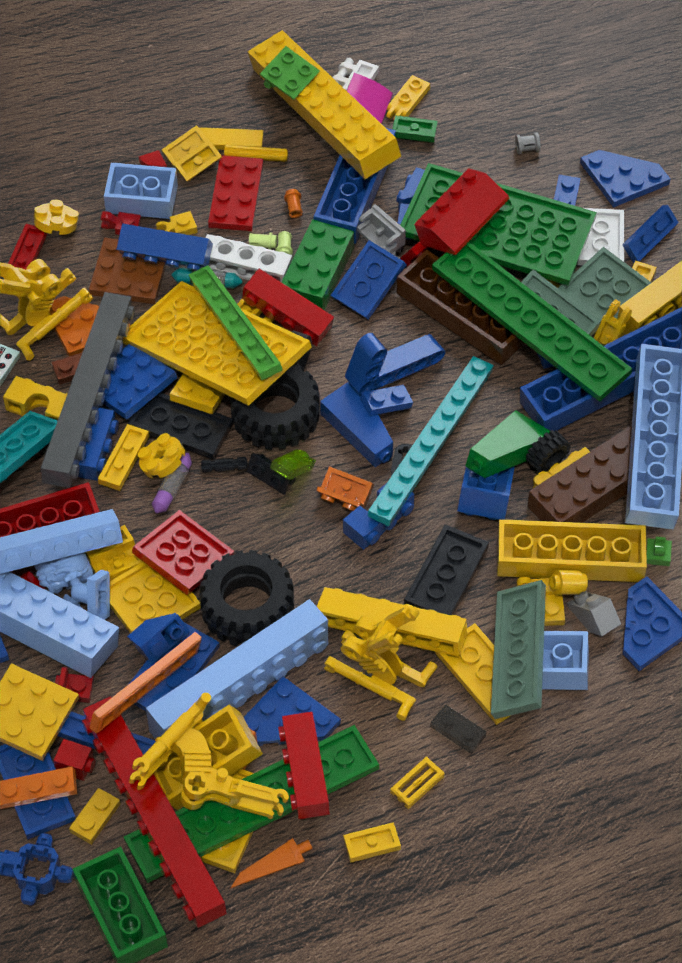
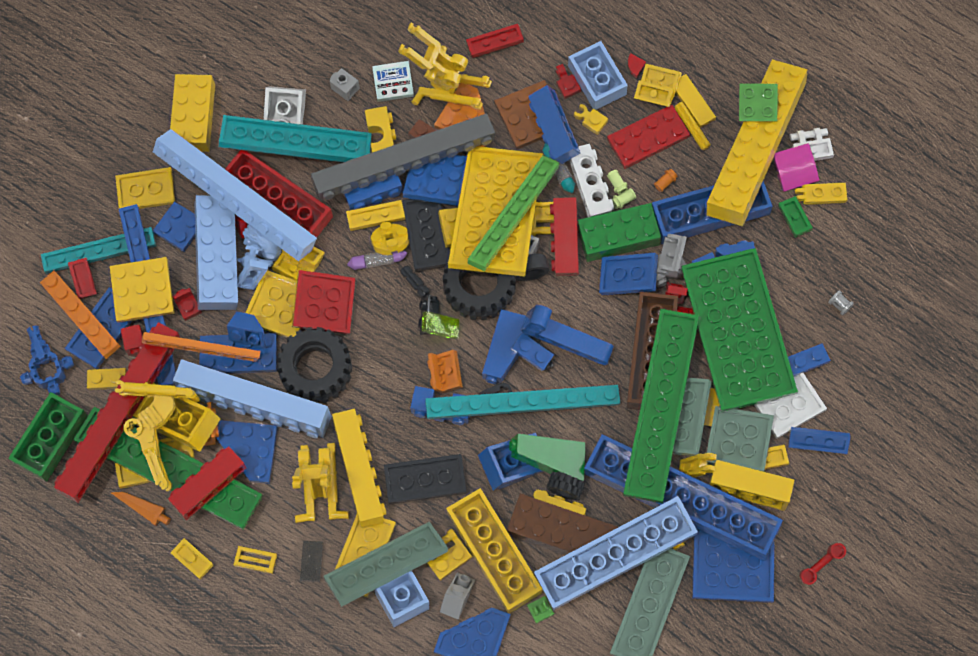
camera: 60 degrees right, 15 degrees up
(55, 217) = (543, 32): yellow plate -> none
(460, 212) = (718, 299): red slope -> none
(568, 582) = (465, 564): yellow brick -> none
(622, 176) = (863, 389): plate -> none

